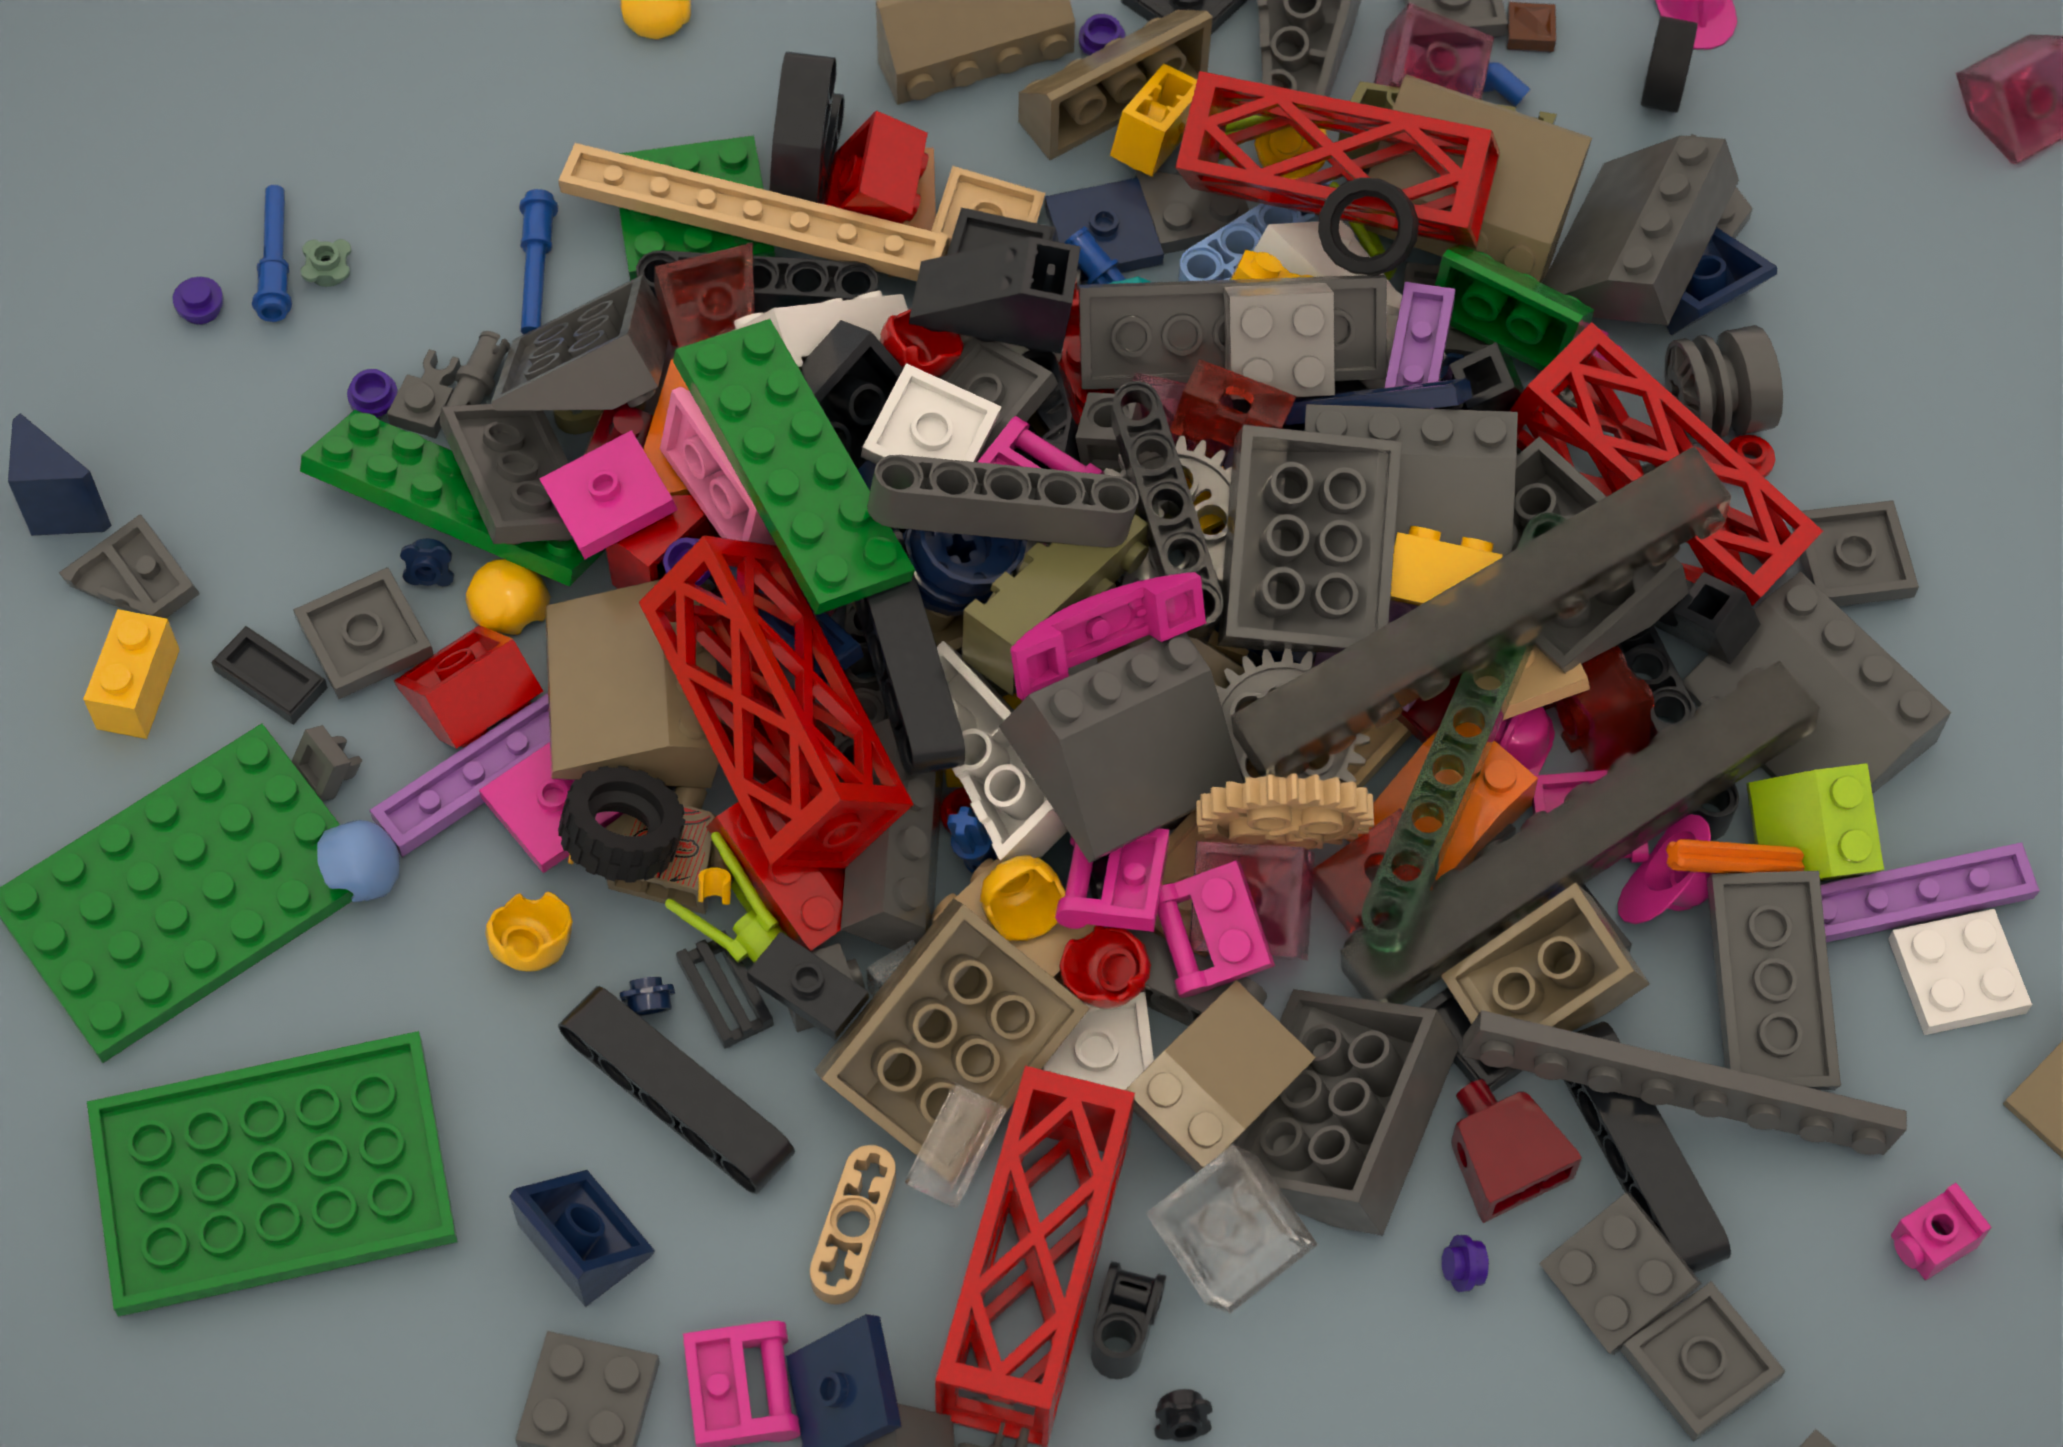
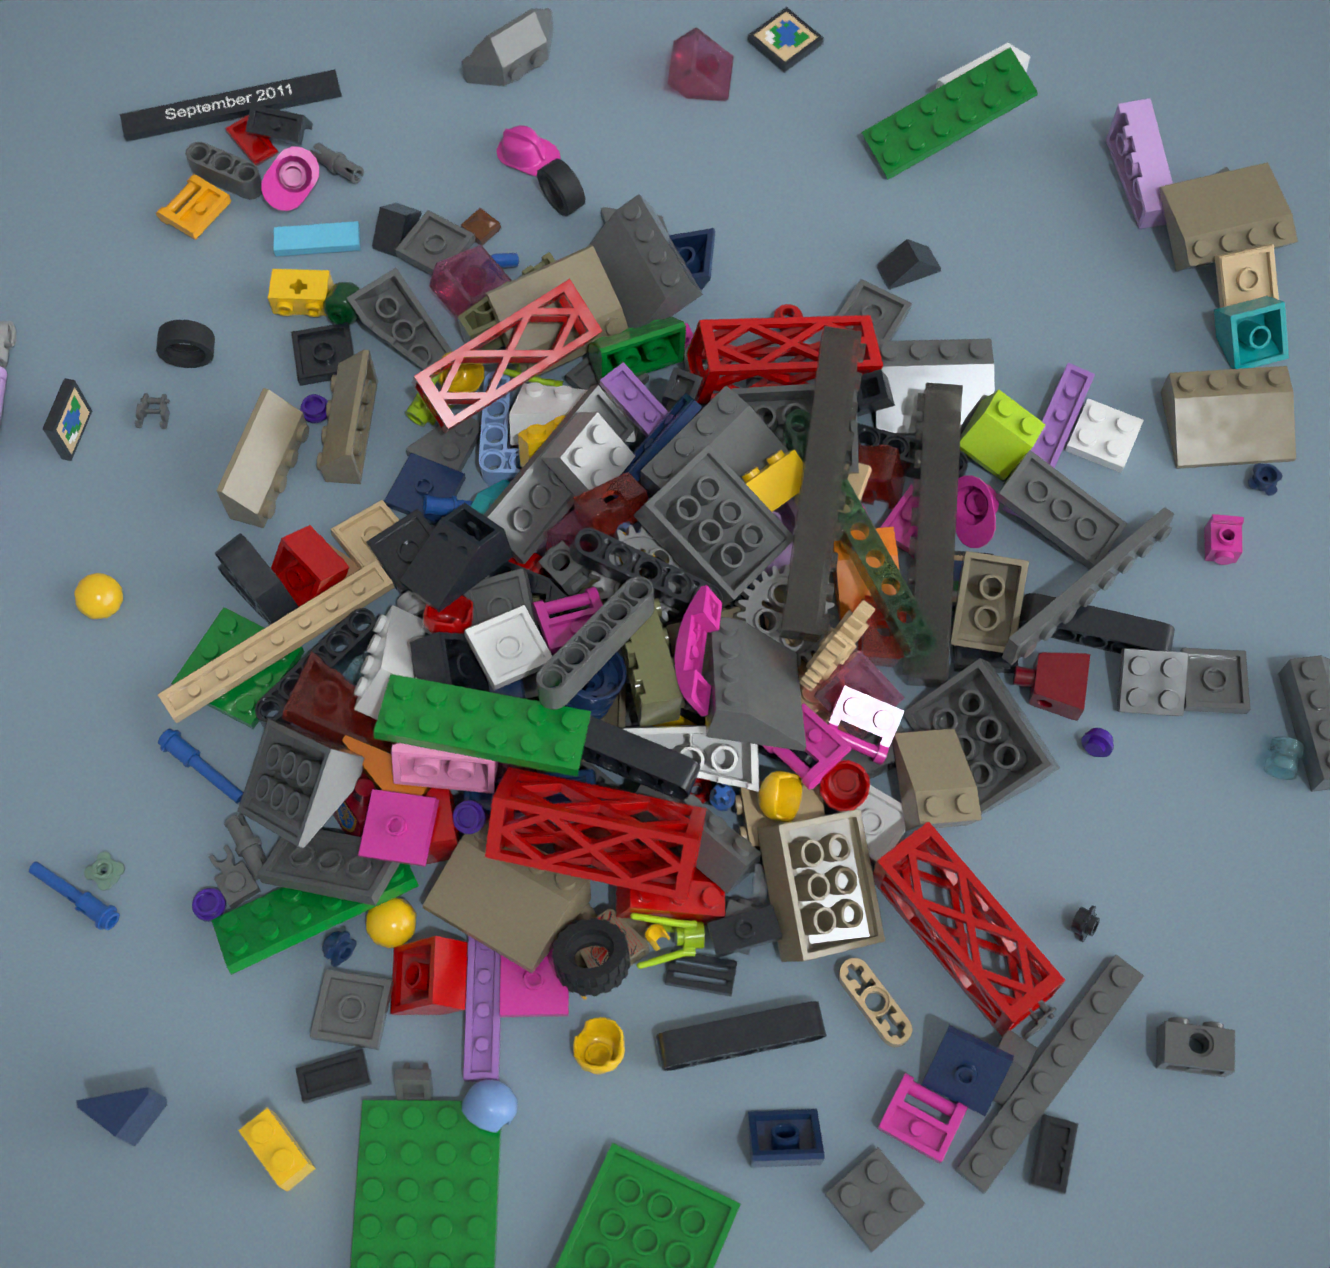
camera: 50 degrees left, 5 degrees up
(132, 572) = (212, 1106): dark grey wing -> none
(198, 300) = (67, 954): dark purple plate -> none
(648, 996) = (679, 1013): dark blue plate -> none
(955, 1145) = (875, 923): clear tile -> none
(1125, 1311) = (1022, 907): black piece -> none
(1154, 121) = (393, 418): yellow brick -> none
(1231, 1229) = (1016, 830): clear brick -> none
(1329, 226) = (587, 372): black tyre -> none
(1728, 380) = (750, 291): dark grey wheel -> none
(1732, 857) = (999, 478): orange axle -> none
(1983, 545) = (907, 264): none -> black slope

